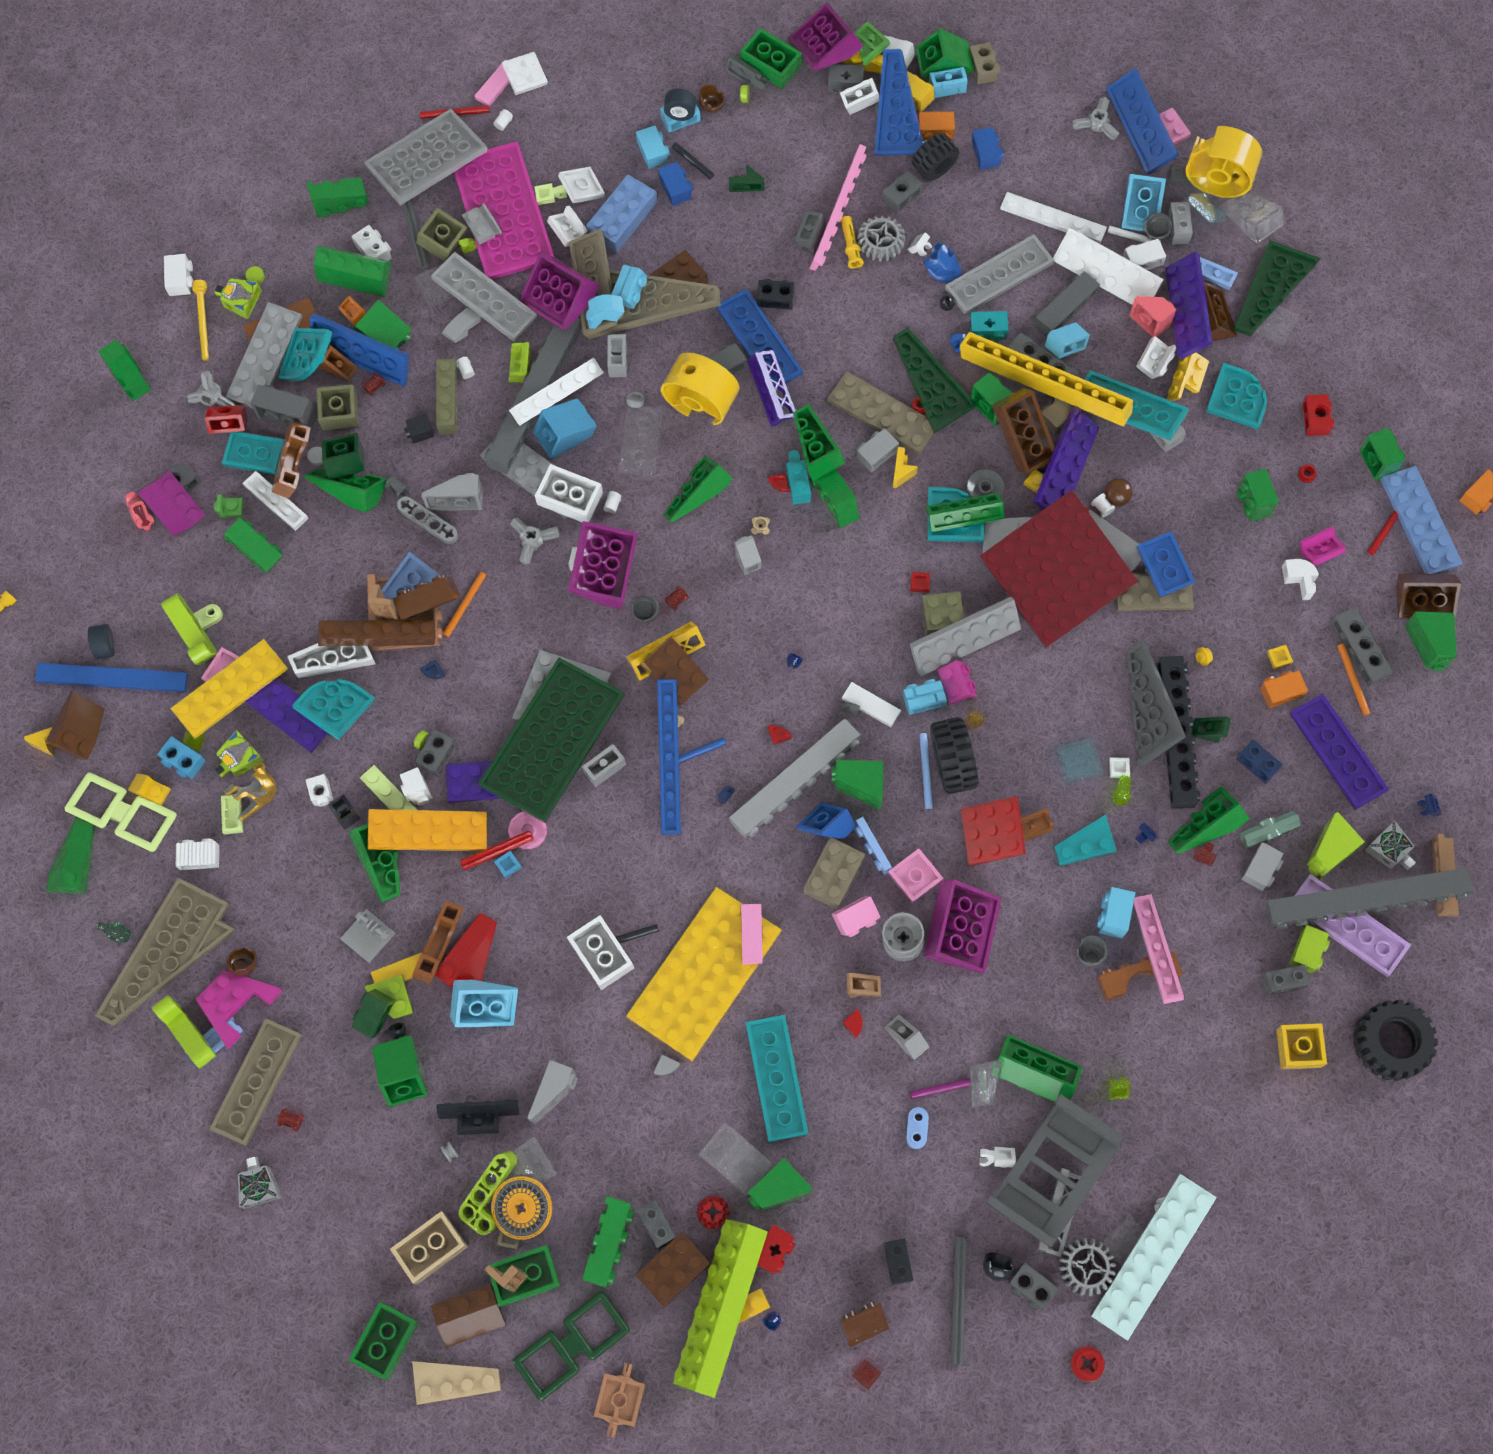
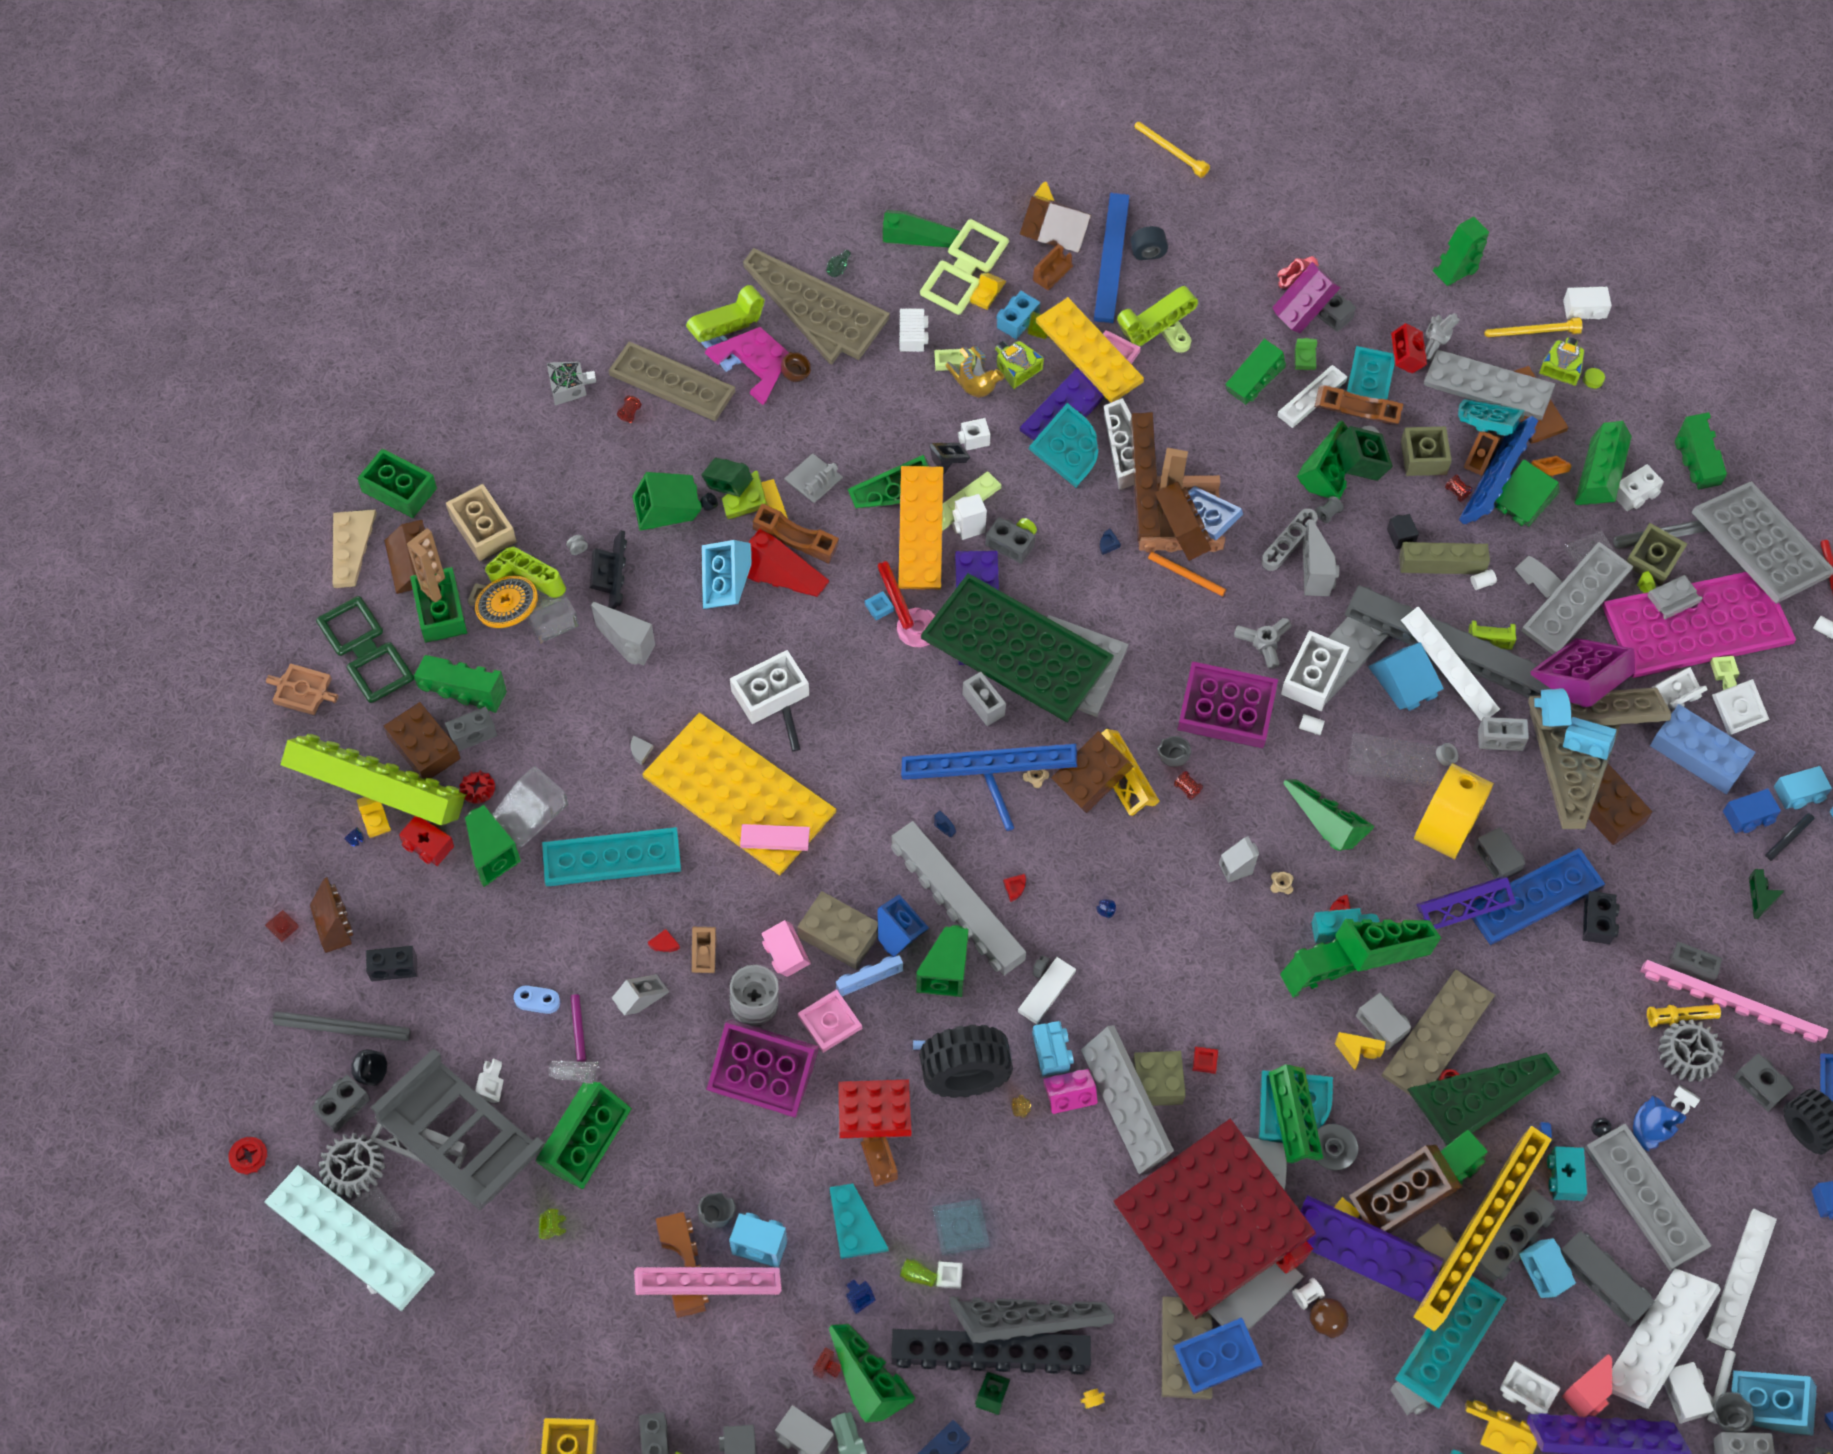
camera: 90 degrees right, 10 degrees down
(126, 729) = (1052, 268): none -> dark orange hinge
(282, 407) = (1422, 396): dark grey brick -> none

